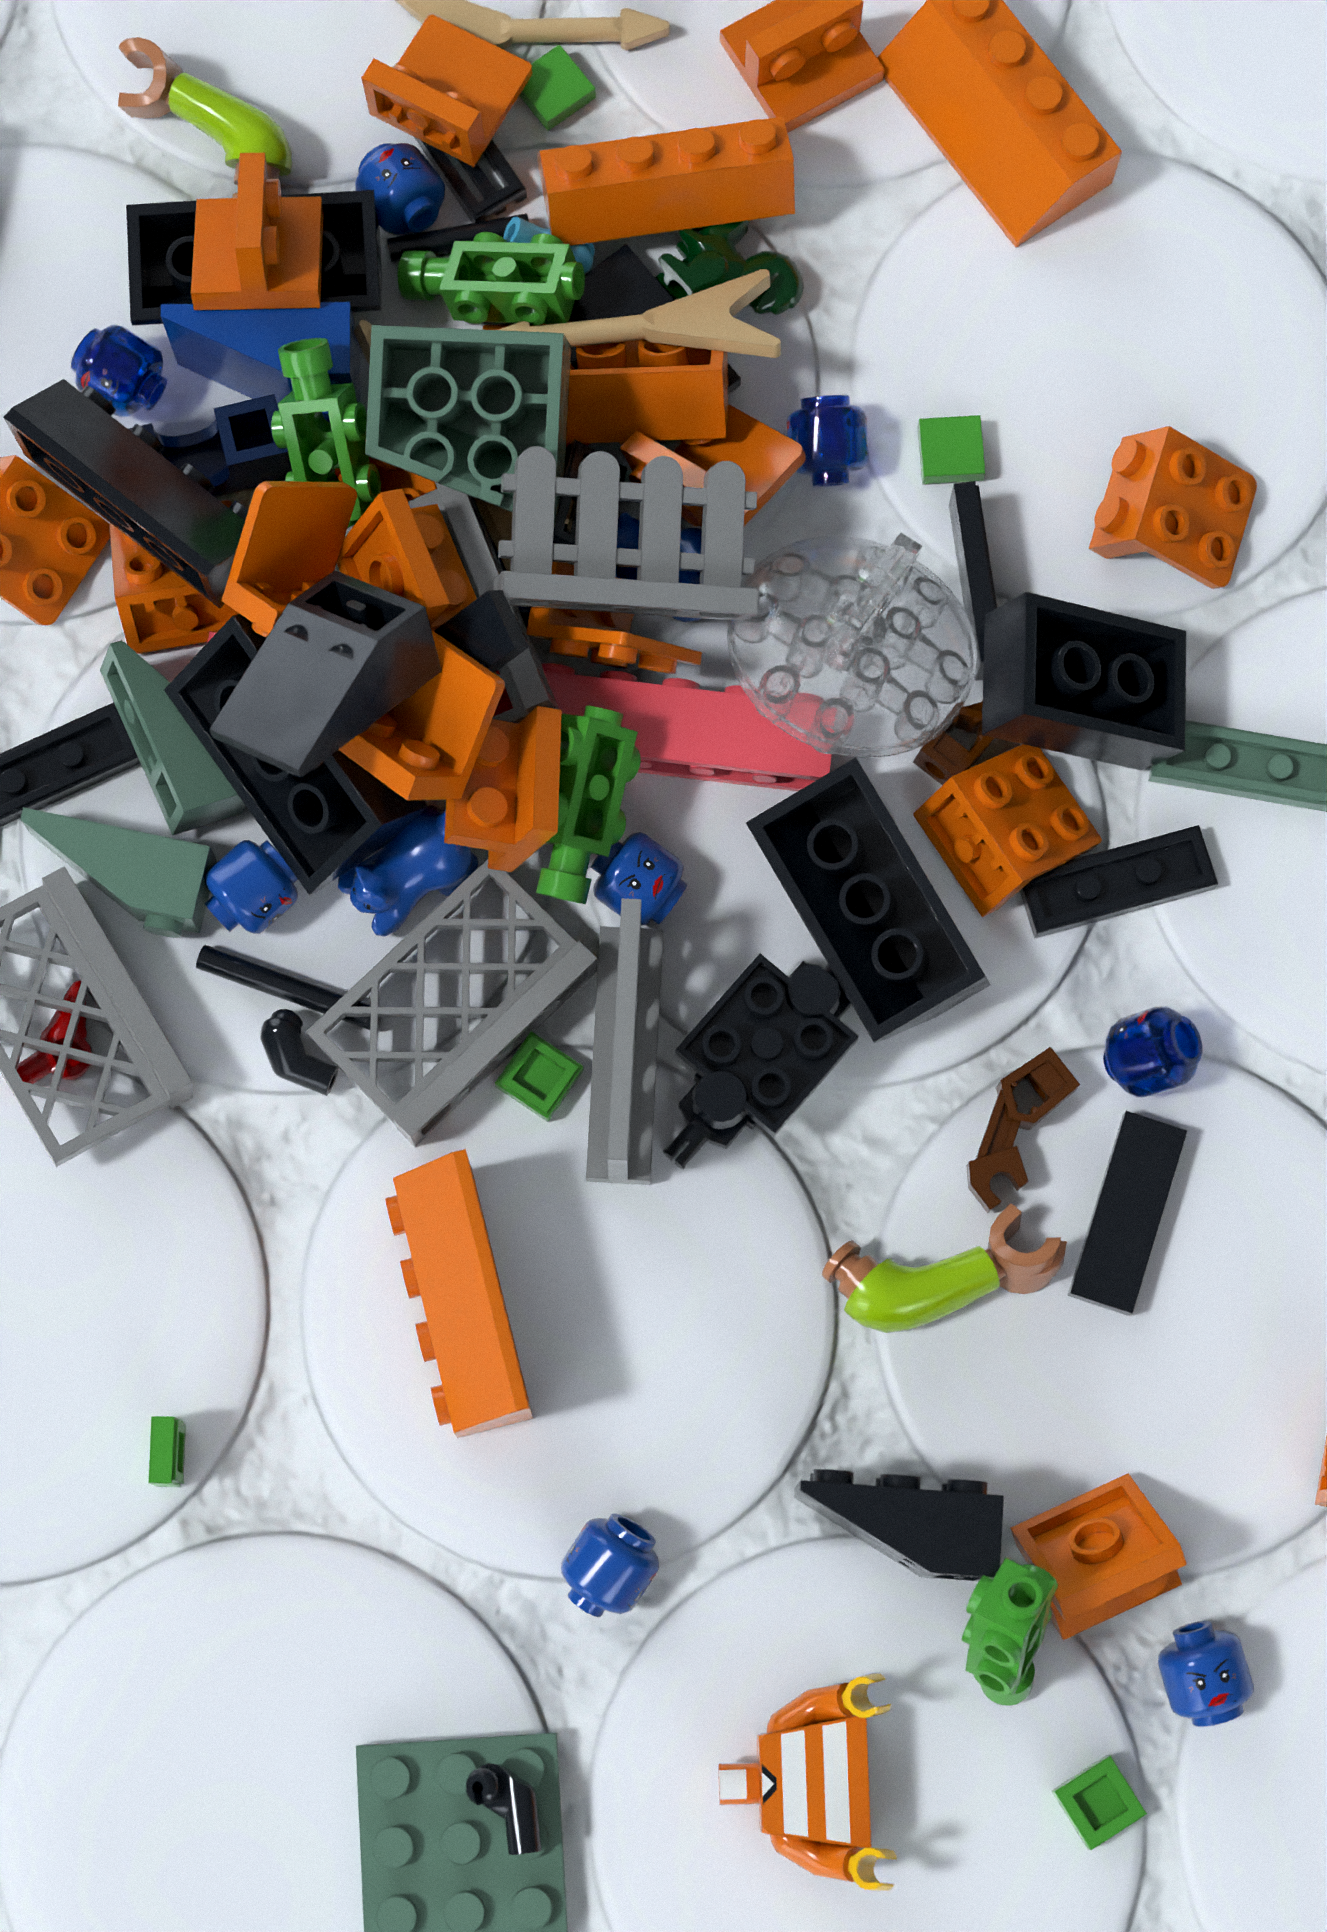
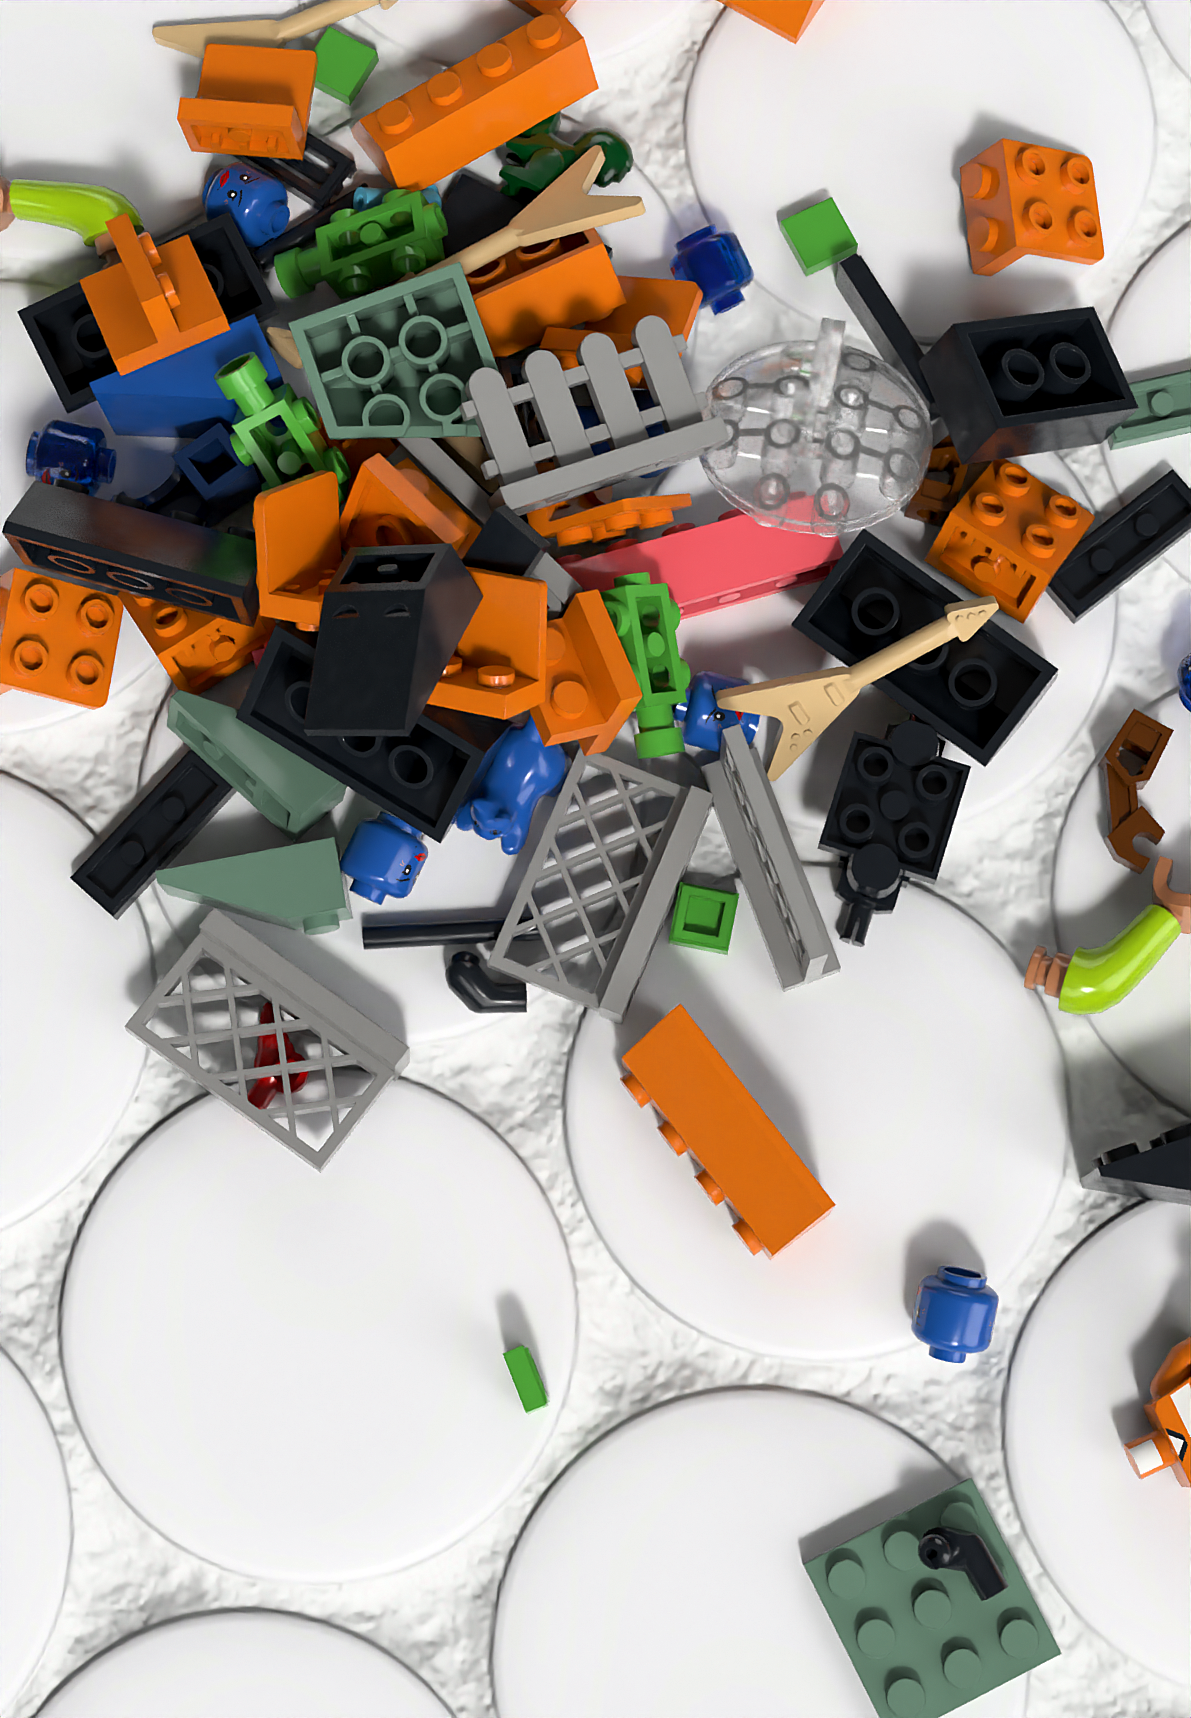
camera: 15 degrees left, 0 degrees up
(736, 906) = (815, 699): none -> tan piece

